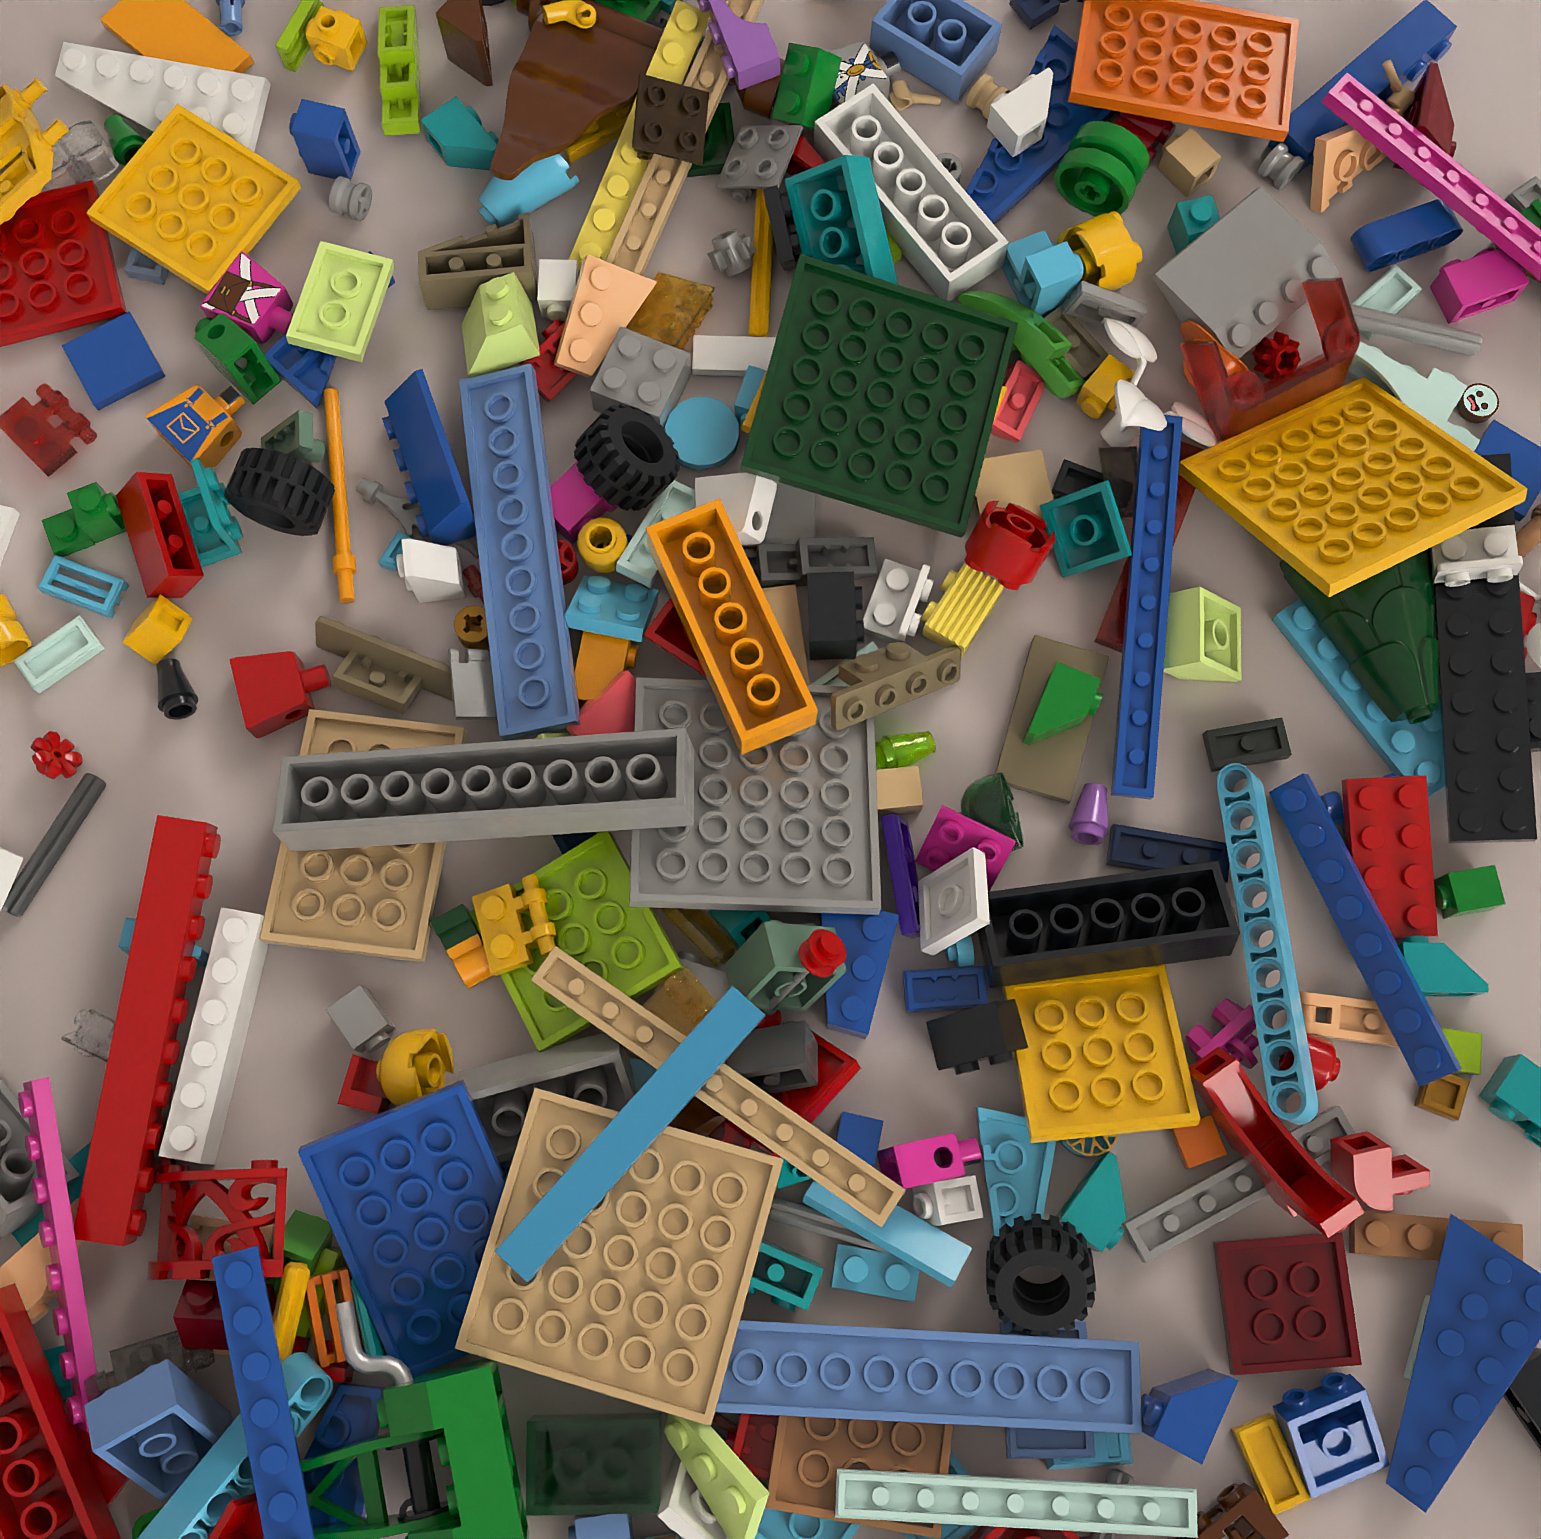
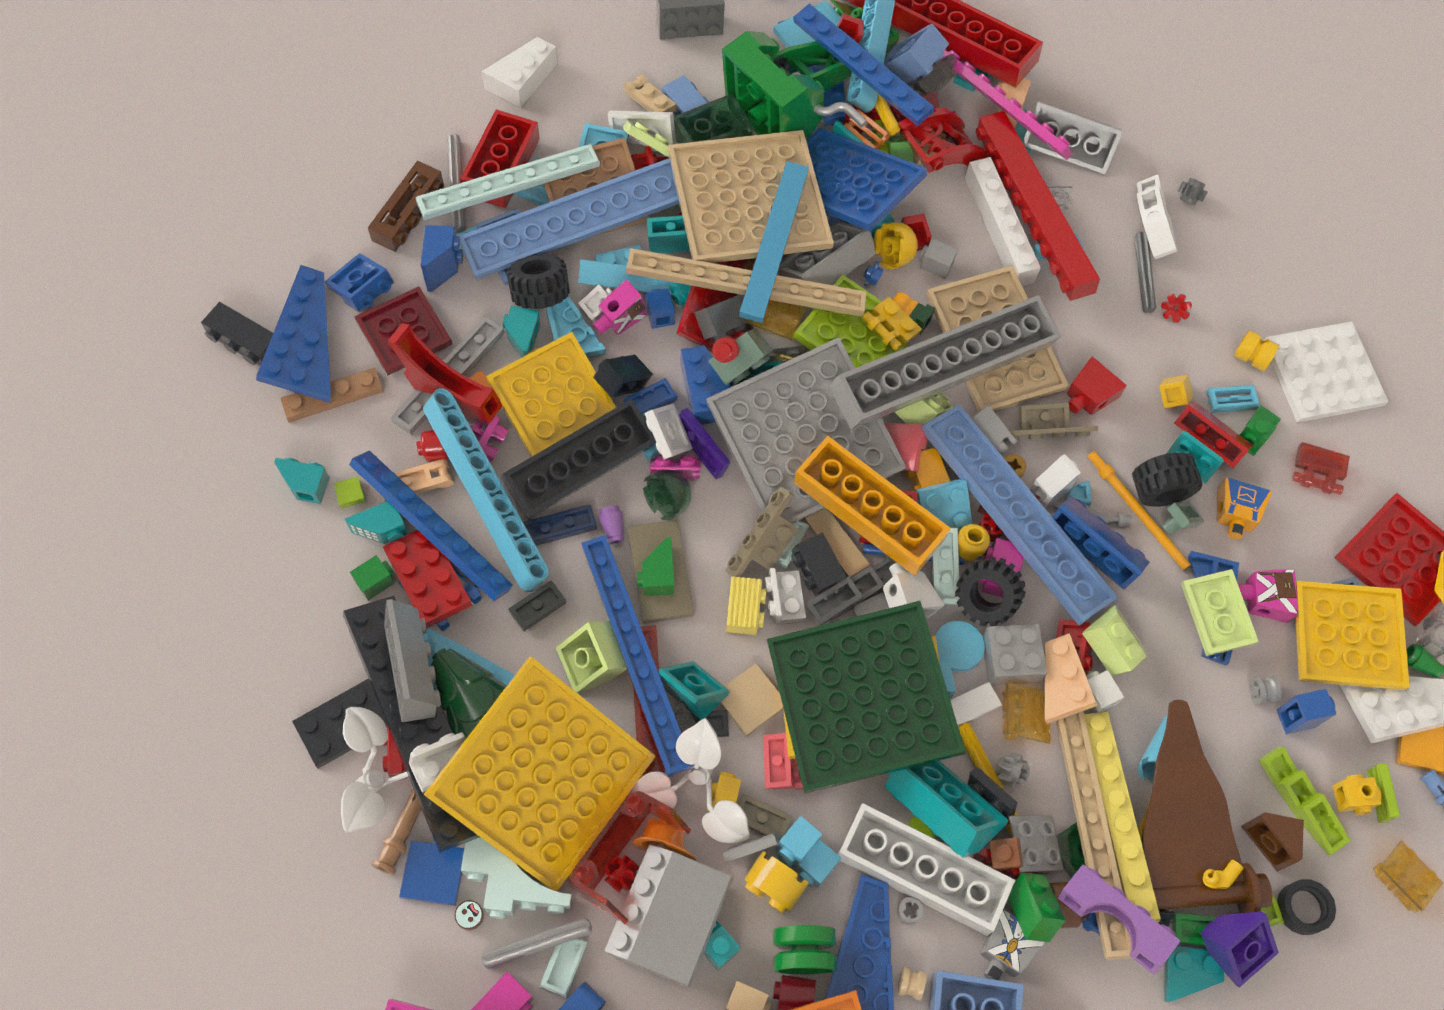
camera: 150 degrees right, 10 degrees down
(59, 654) = (1216, 360): light aqua tile -> none
(113, 360) = (1318, 526): blue tile -> none
(175, 692) = (1144, 366): black cone -> none
(224, 345) = (1254, 551): green torso -> none
(457, 267) = (1154, 680): dark tan wedge -> none
(459, 136) = (1235, 768): teal slope -> none
(483, 1042) = (872, 274): none -> blue plate
(669, 120) = (1106, 822): dark brown hinge -> none
(807, 148) = (1006, 853): none -> dark orange plate
(899, 791) = (729, 485): tan brick -> none
(902, 98) = (972, 957): tan hand -> none
(903, 749) = (737, 511): clear neon green cone -> none
(1008, 544) = (736, 649): red brick -> none
(1021, 115) = (878, 967): white slope -> none
(1036, 339) = (791, 801): bright green slope -> none
(1270, 1463) = (383, 256): yellow tile -> none
(1371, 1173) = (378, 400): brick -> none
(1443, 1096) = (345, 471): pearl gold tile -> none
(1476, 702) = (410, 662): none -> light grey slope

